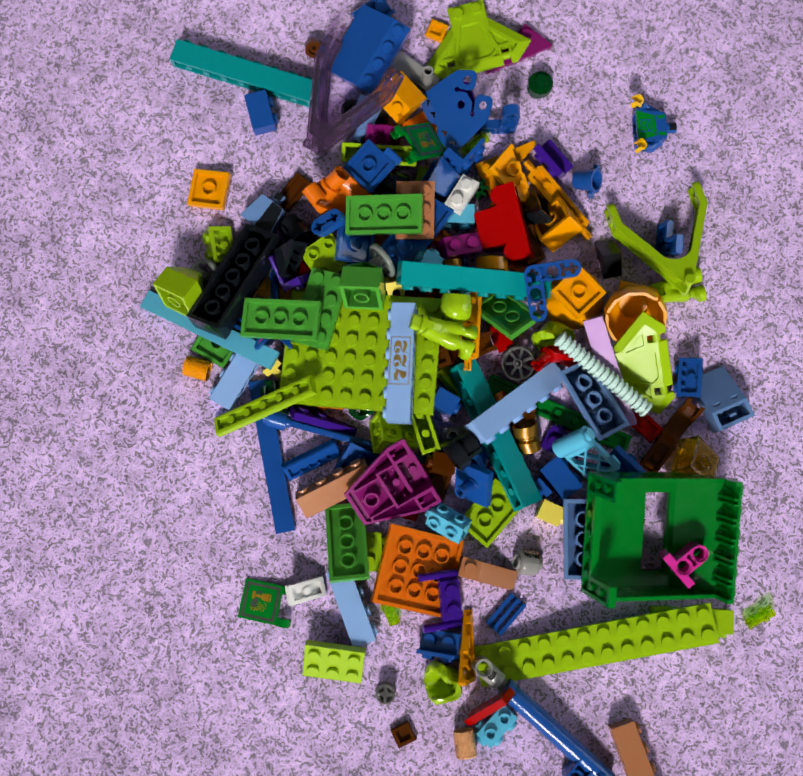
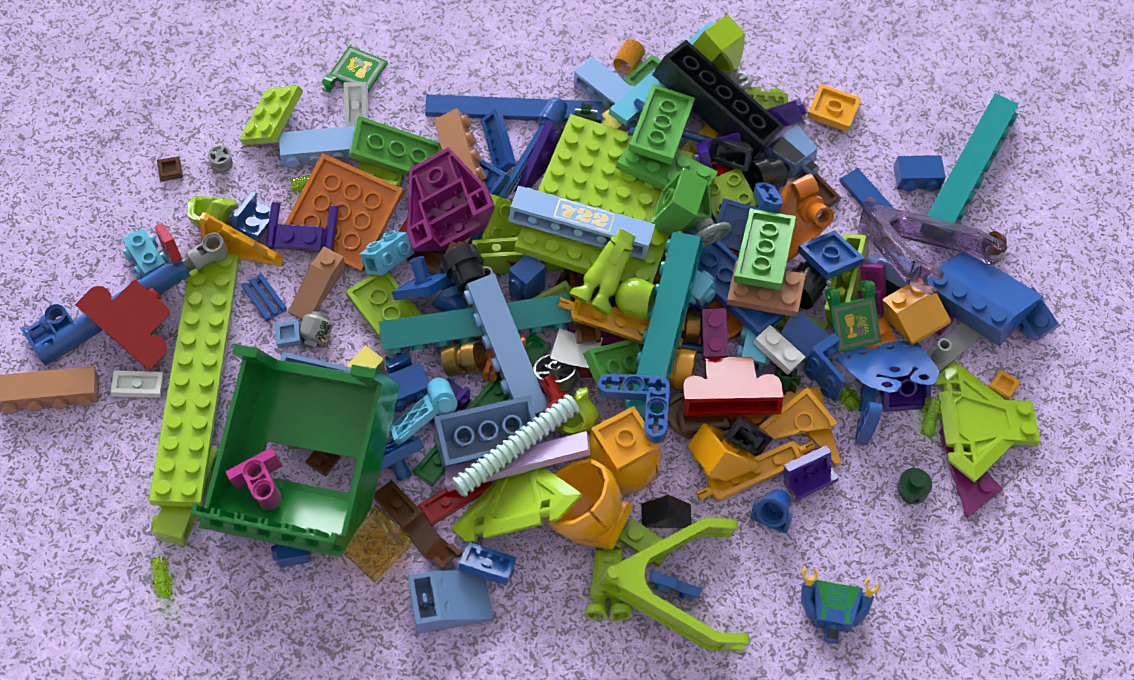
camera: 100 degrees right, 20 degrees down
(230, 223) = (790, 112): none -> dark purple bracket
(265, 405) = (569, 100): lime tile -> none
(288, 152) = (860, 188): none -> blue tile
(393, 156) = (838, 278): blue tile -> none
(465, 743) = (136, 219): light nougat piece -> none
(483, 80) = (930, 416): none -> clear neon green pin
(502, 357) = (568, 351): none -> white sticker
(539, 582) = (288, 334): none -> medium blue tile
(568, 714) = (129, 319): none -> red brick
(610, 690) = (137, 384): none -> white plate
(633, 270) = (639, 538): none -> lime plate

